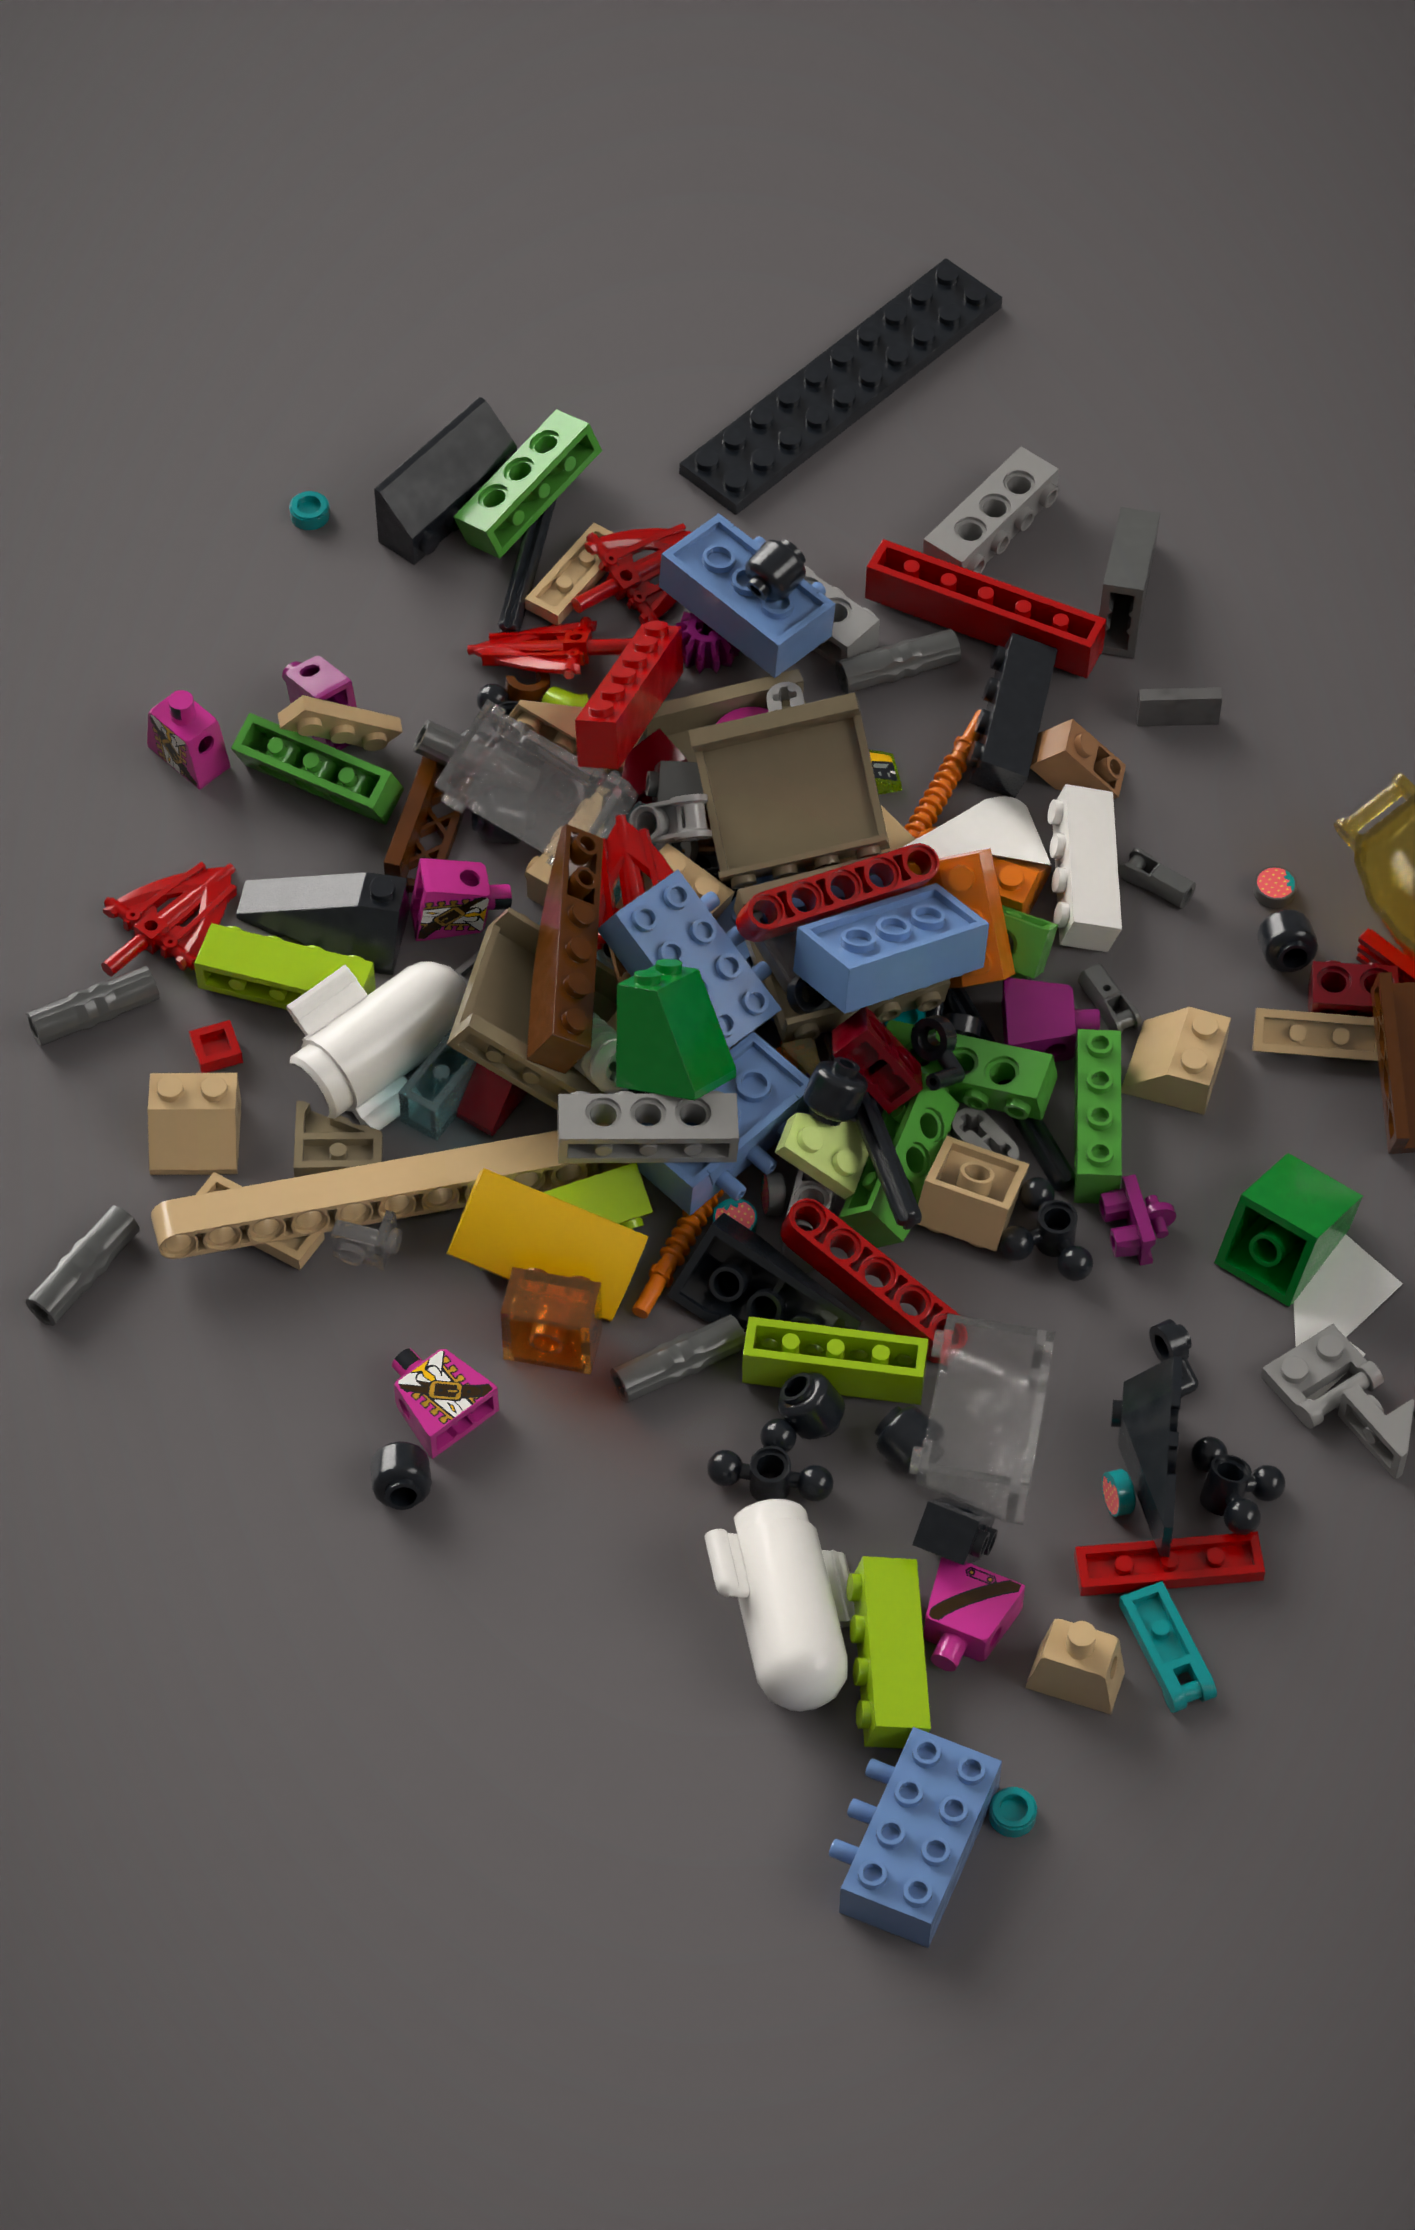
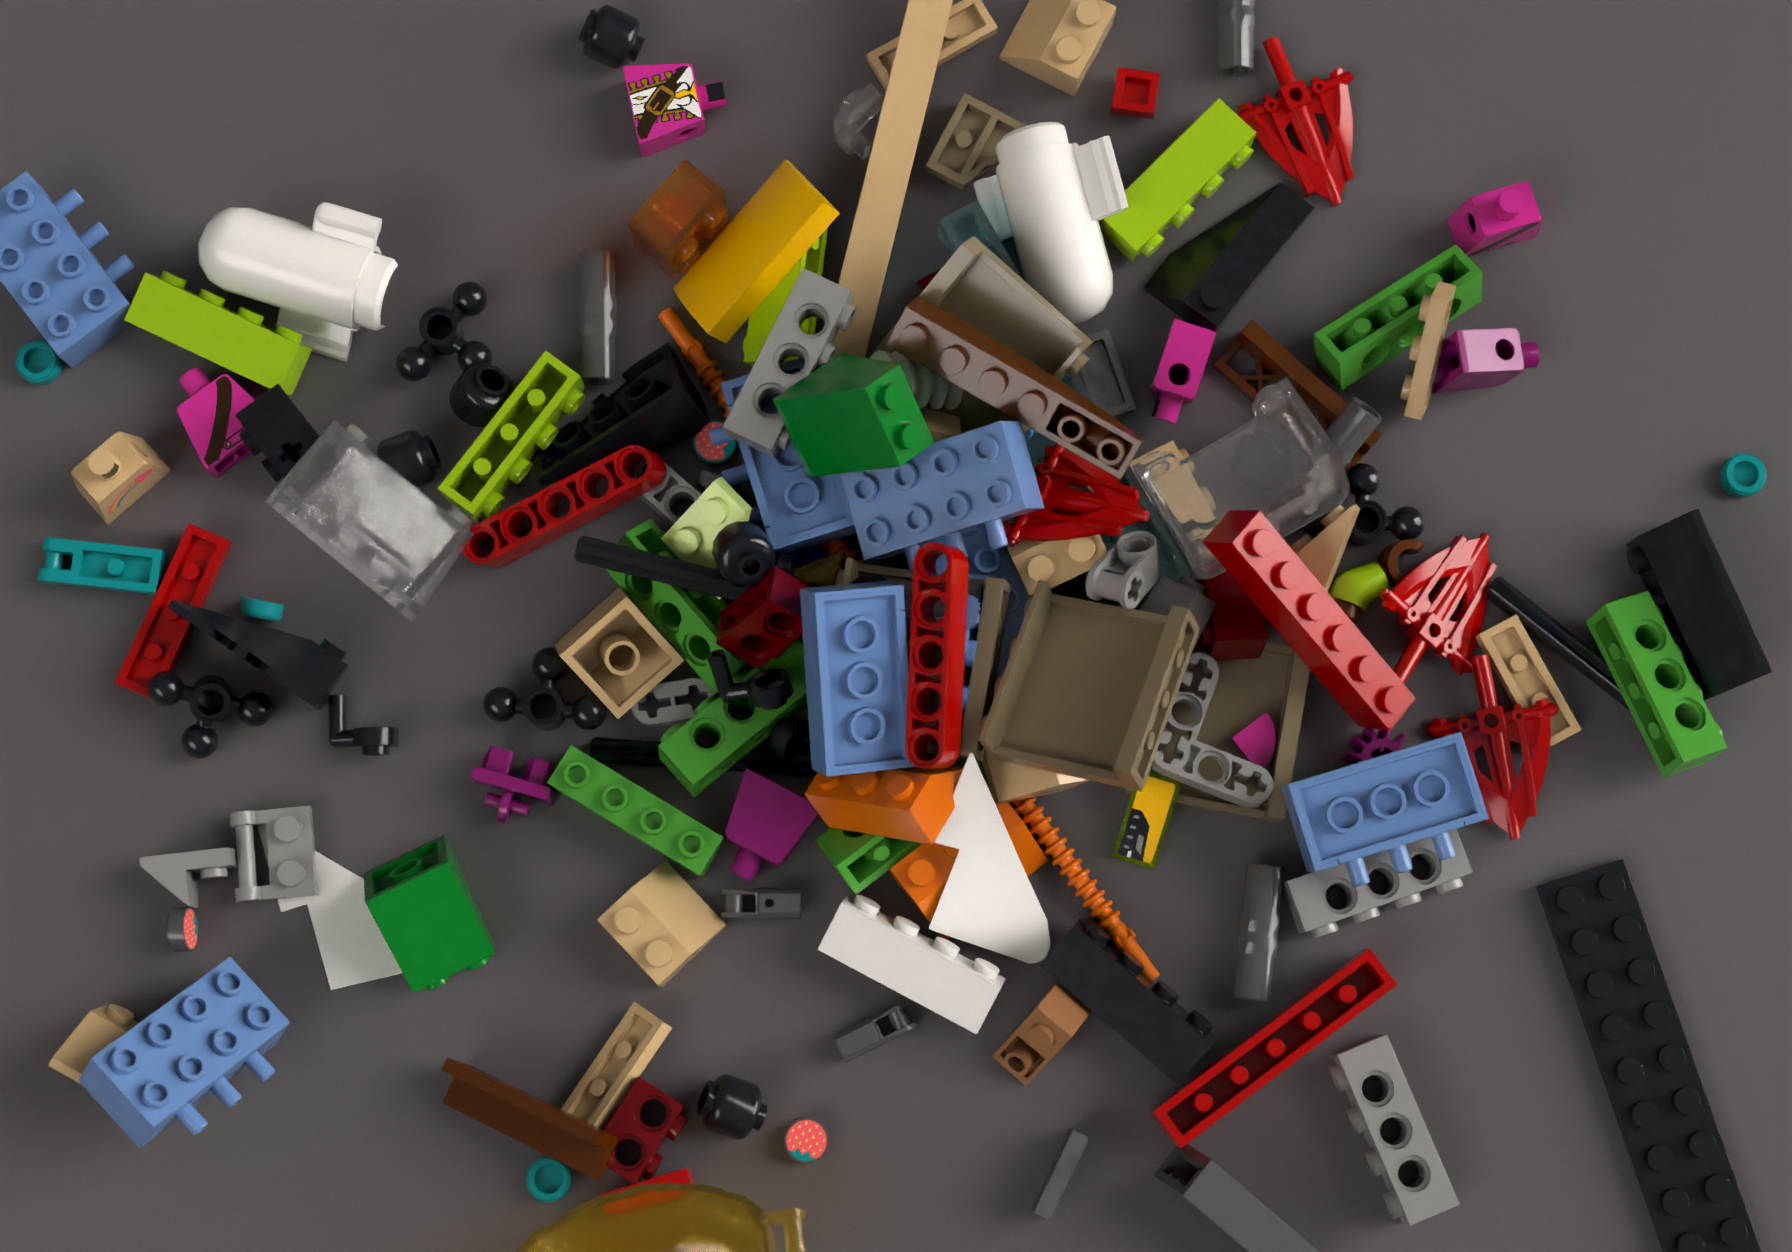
camera: 115 degrees right, 25 degrees up
(775, 570) = (1372, 822): black head -> none

